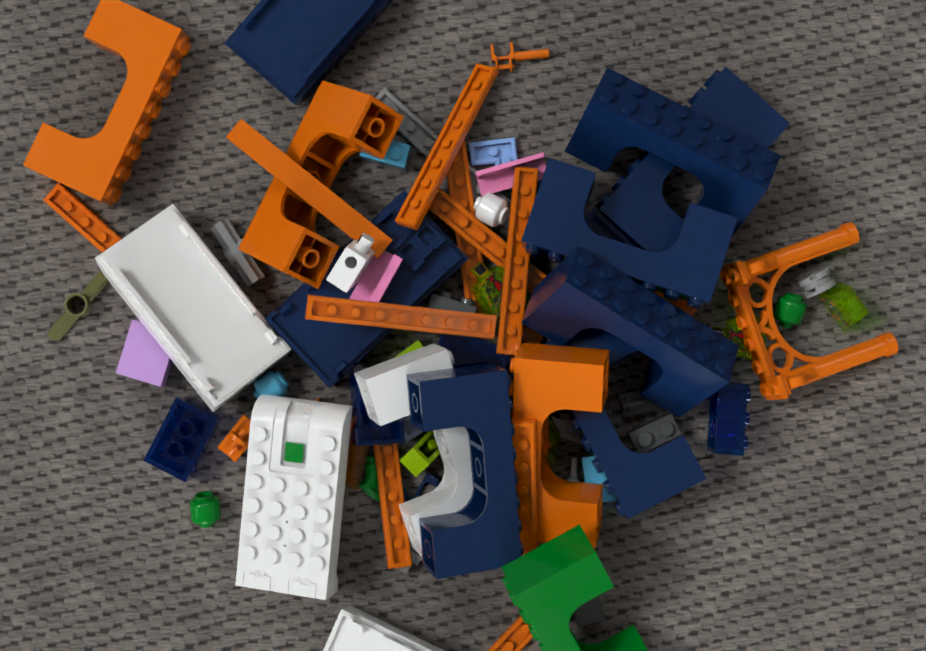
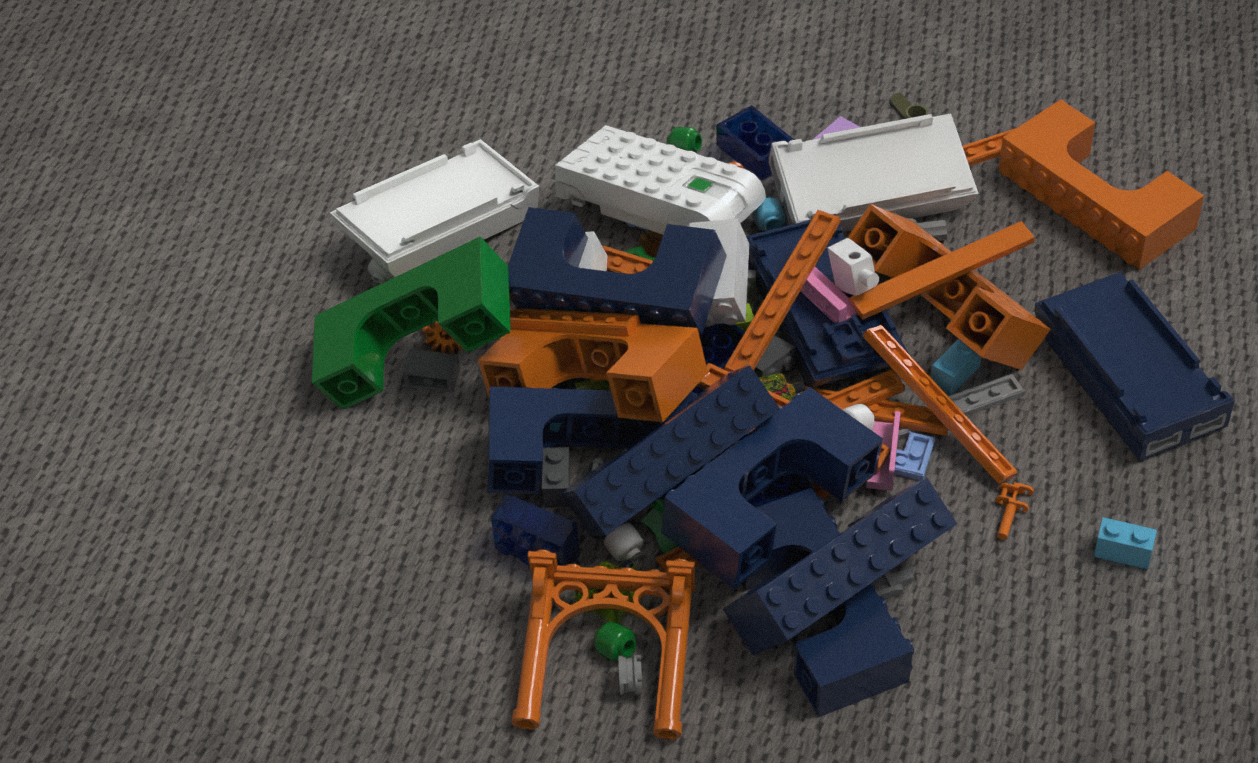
camera: 115 degrees right, 40 degrees down
(844, 305) = (590, 688): clear neon green torso -> none

